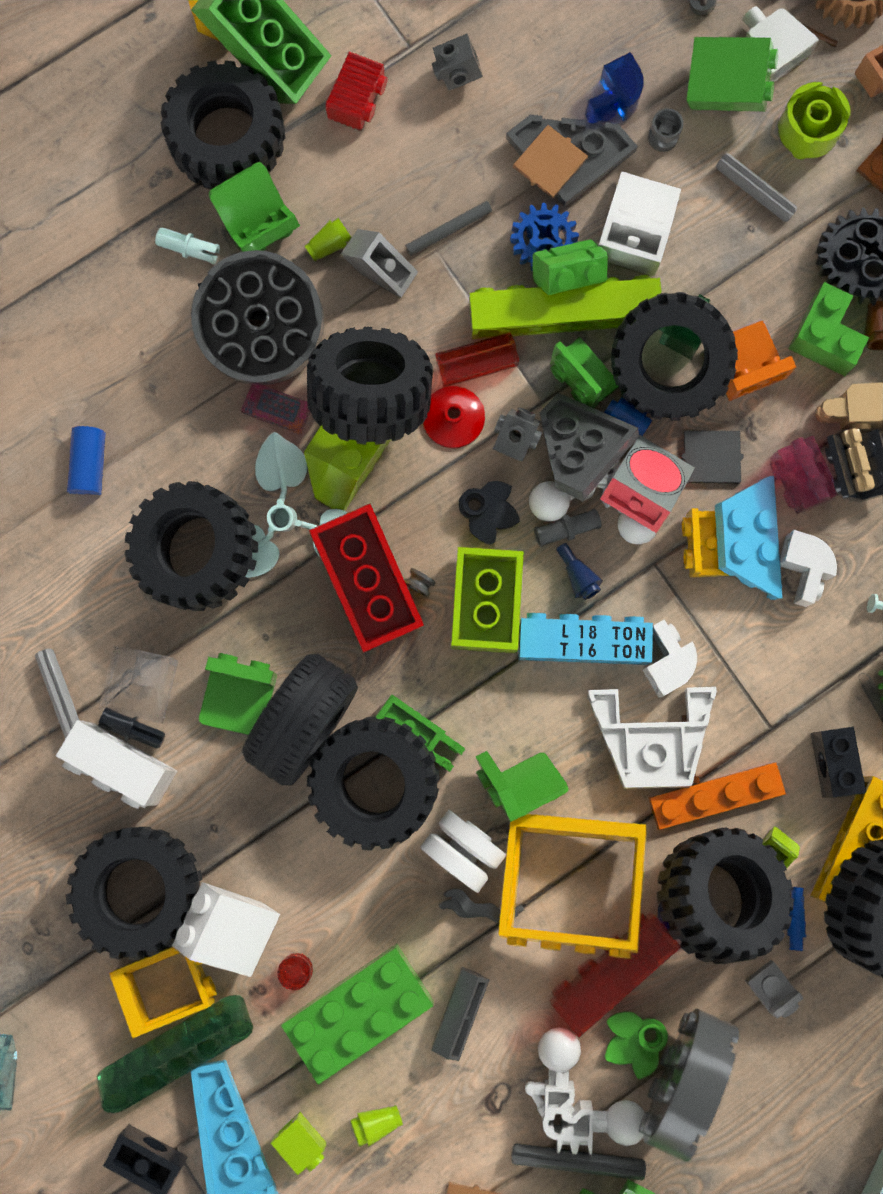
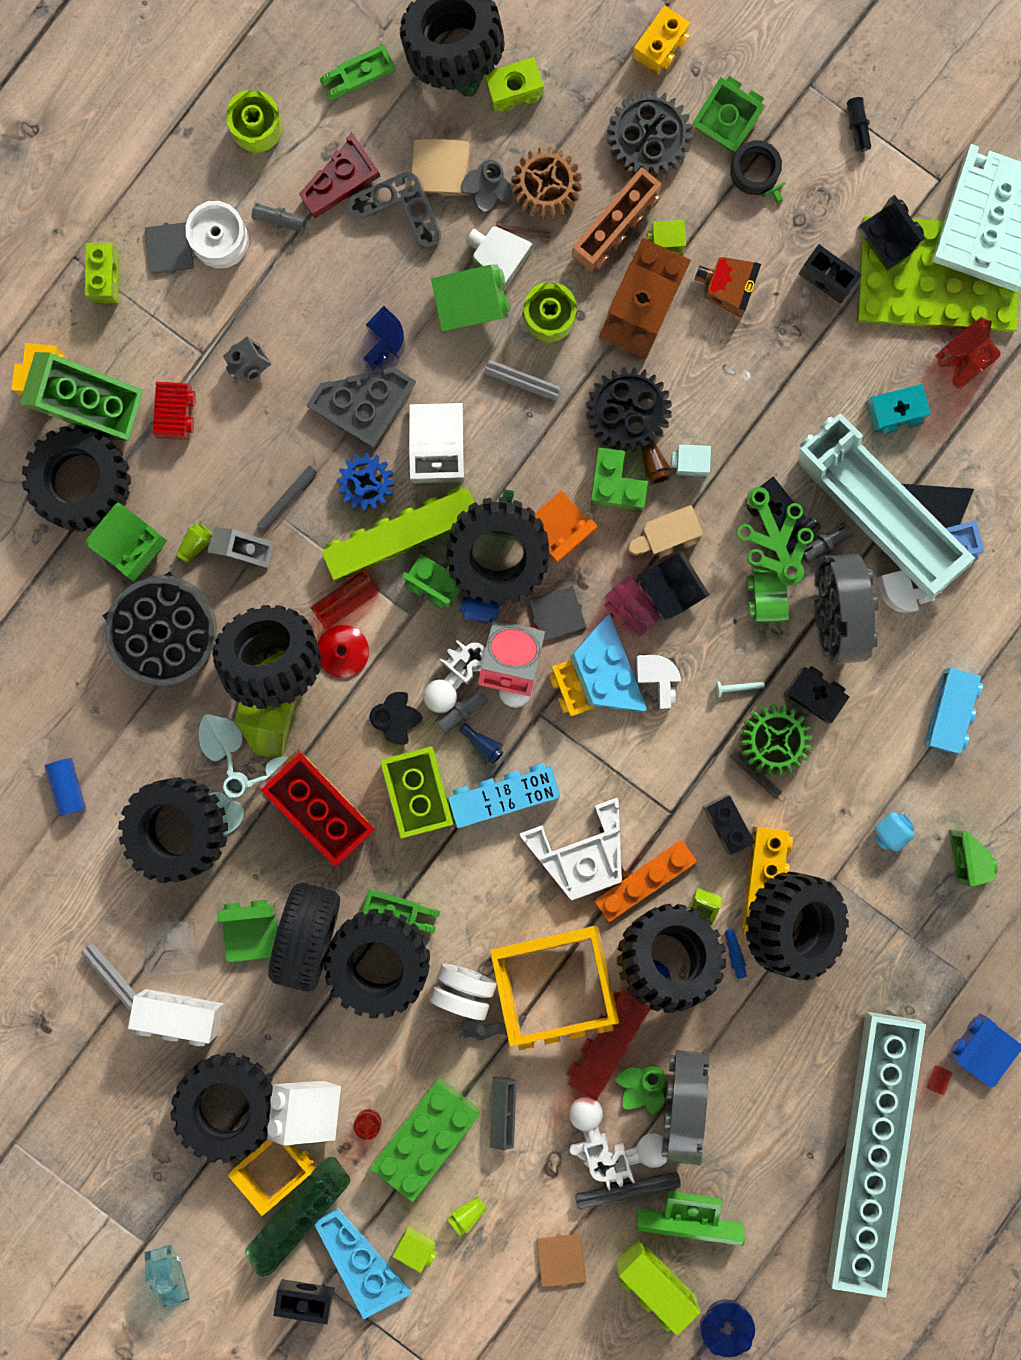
camera: 15 degrees left, 5 degrees up
(130, 728) = (176, 984): black axle -> none
(187, 245) = (82, 584): light aqua axle -> none
(276, 408) = (200, 693): clear pink tile -> none
(419, 582) = (360, 794): dark grey bush -> none
(512, 443) = (397, 651): dark grey brick -> none
(521, 786) = (491, 927): bright green bracket -> none
(550, 161) = (349, 418): medium nougat piece -> none
(570, 267) = (393, 504): bright green brick -> none
(582, 444) = (450, 644): dark grey plate -> none
(665, 122) = (431, 354): dark grey wheel -> none
(677, 663) = (580, 794): white brick -> none
(774, 990) = (734, 1013): light grey bracket -> none
(857, 460) = (669, 582): tan axle -> none

